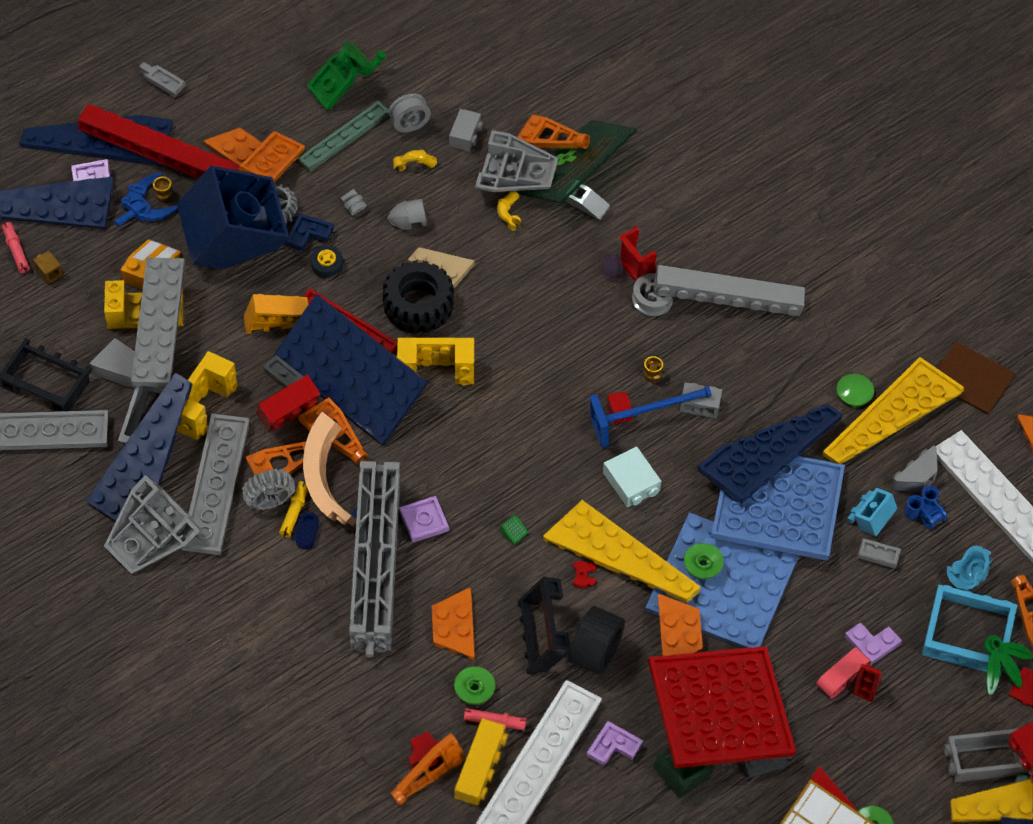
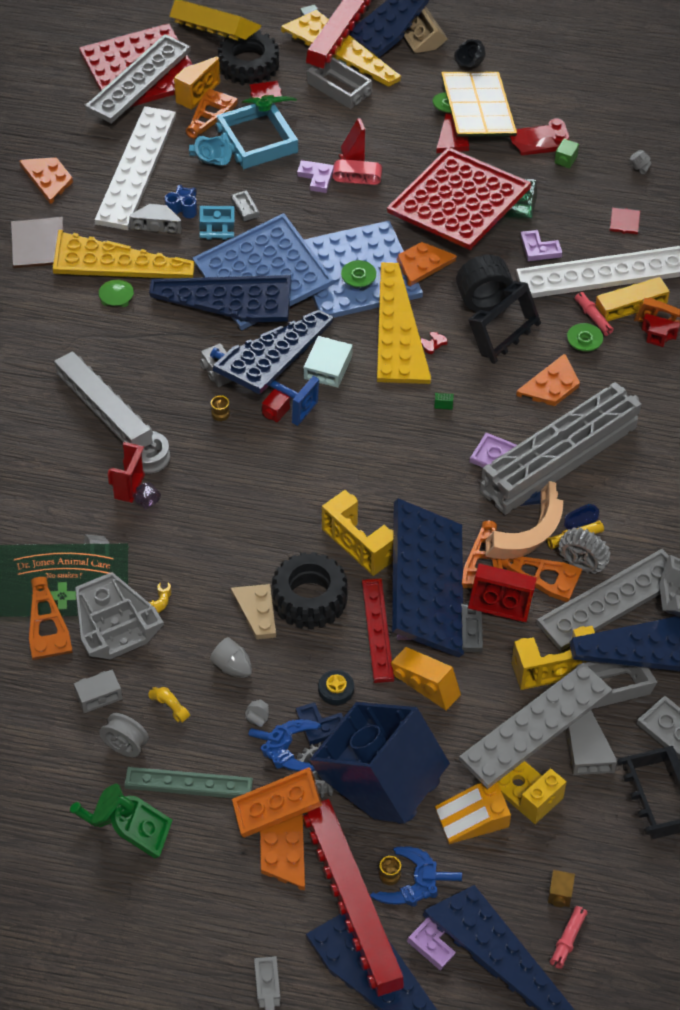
camera: 130 degrees left, 5 degrees down
(317, 196) = (279, 741): none -> blue bar
(668, 417) = (264, 359): none -> dark blue wing

